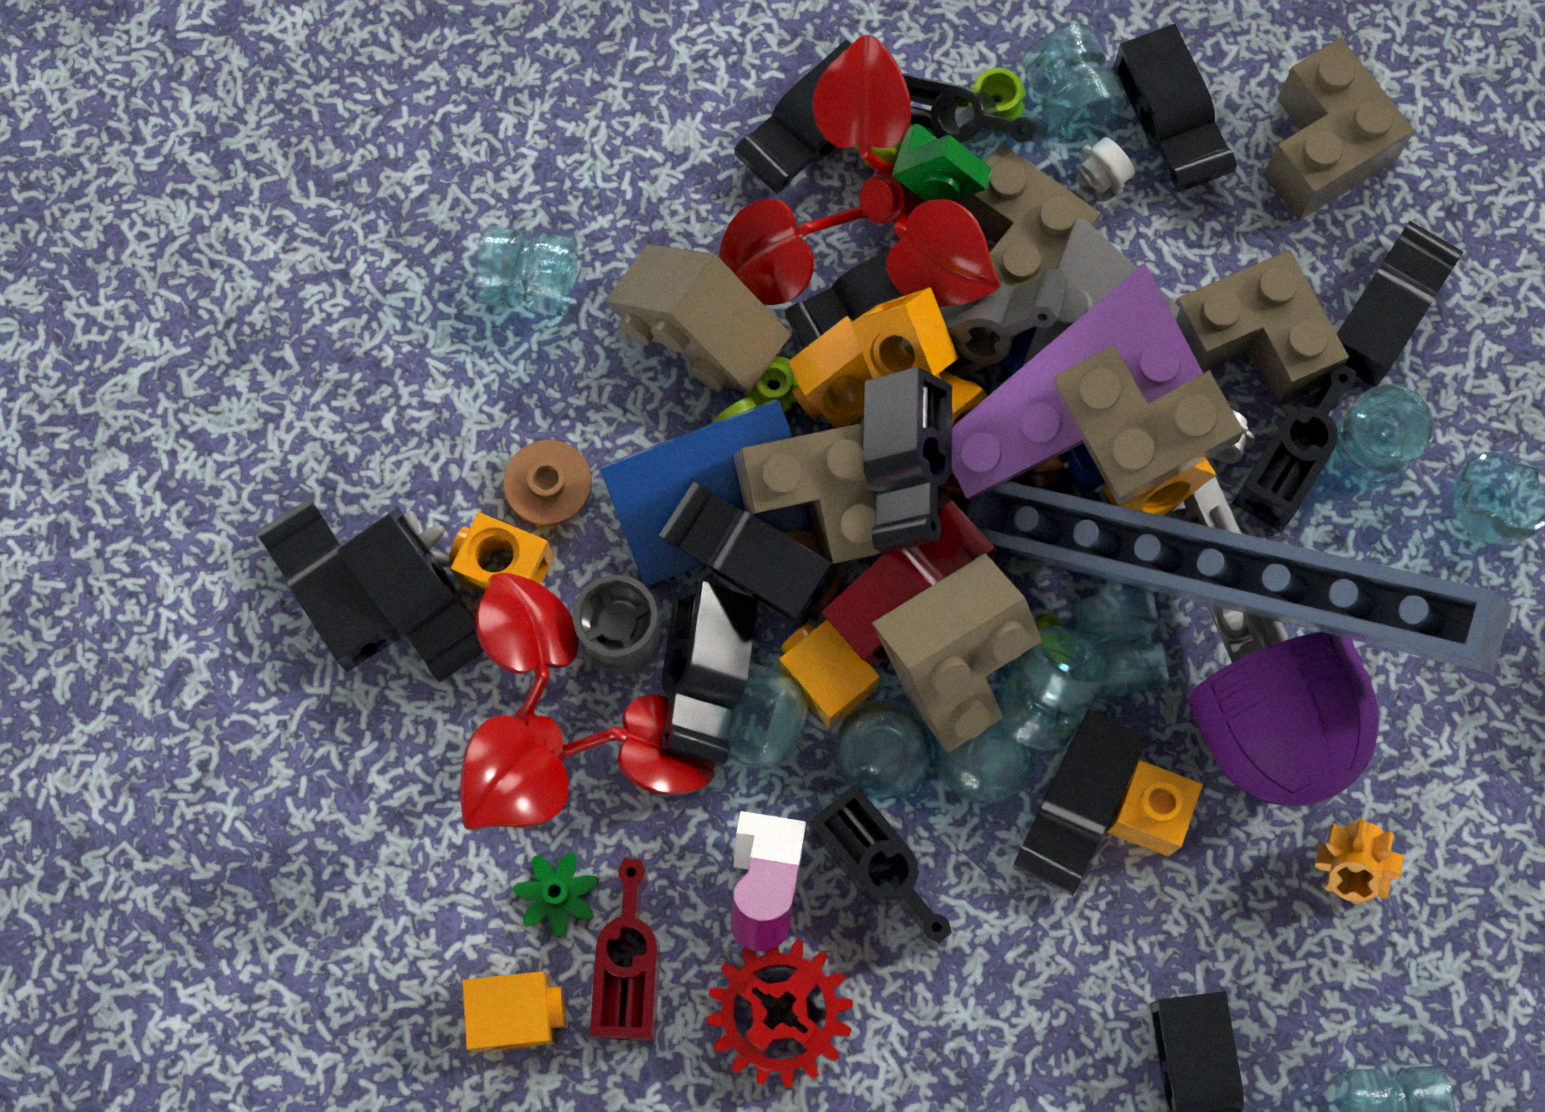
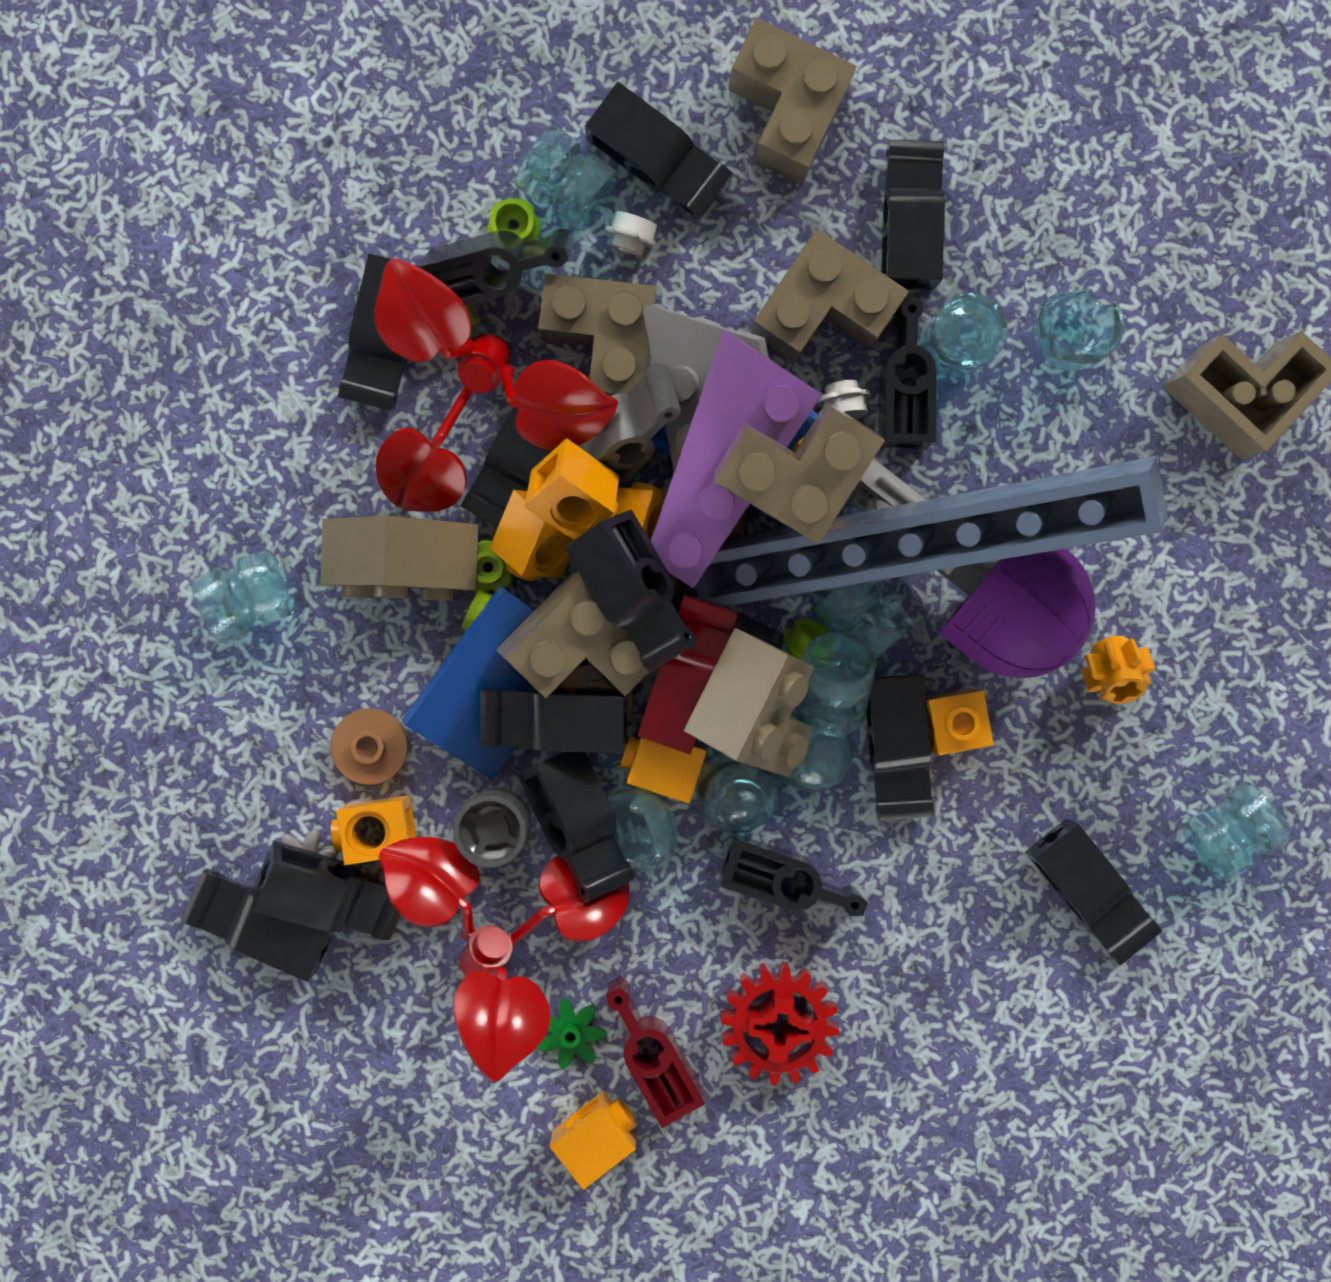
camera: 30 degrees left, 15 degrees up
(766, 894) = (723, 958): leg -> none
(939, 167) = (509, 328): green bracket -> none

